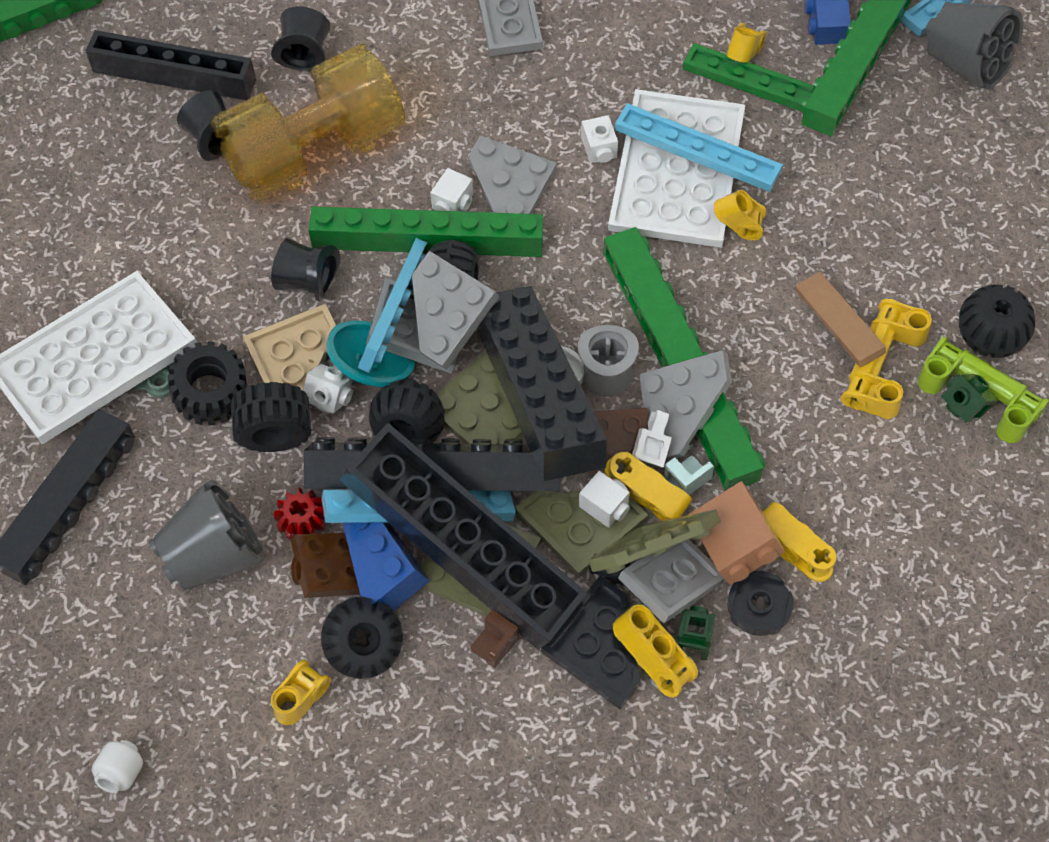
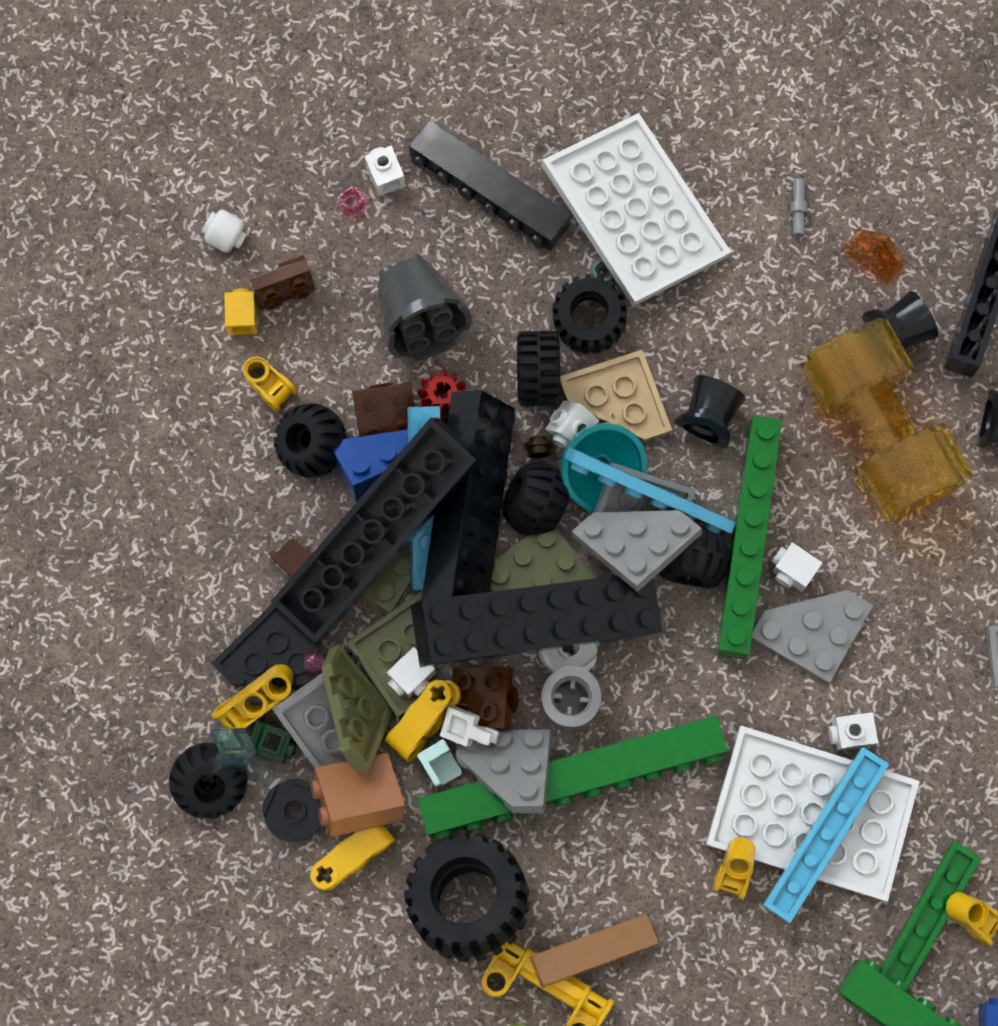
camera: 95 degrees right, 15 degrees up
(43, 603) = (384, 170): none -> white brick
(73, 630) = (352, 193): none -> clear pink plate
(88, 222) = (798, 207): none -> light grey bar
(134, 159) = (875, 253): none -> clear orange slope
(175, 673) = (288, 282): none -> reddish brown plate
(215, 733) = (241, 312): none -> yellow brick
(351, 419) = (538, 447): none -> dark brown plate
(607, 592) = (313, 661): none -> clear pink plate
(712, 657) = (234, 748): none -> clear light blue panel
(746, 689) = (200, 798): none -> black wheel
(811, 382) = (445, 864): none -> black tyre

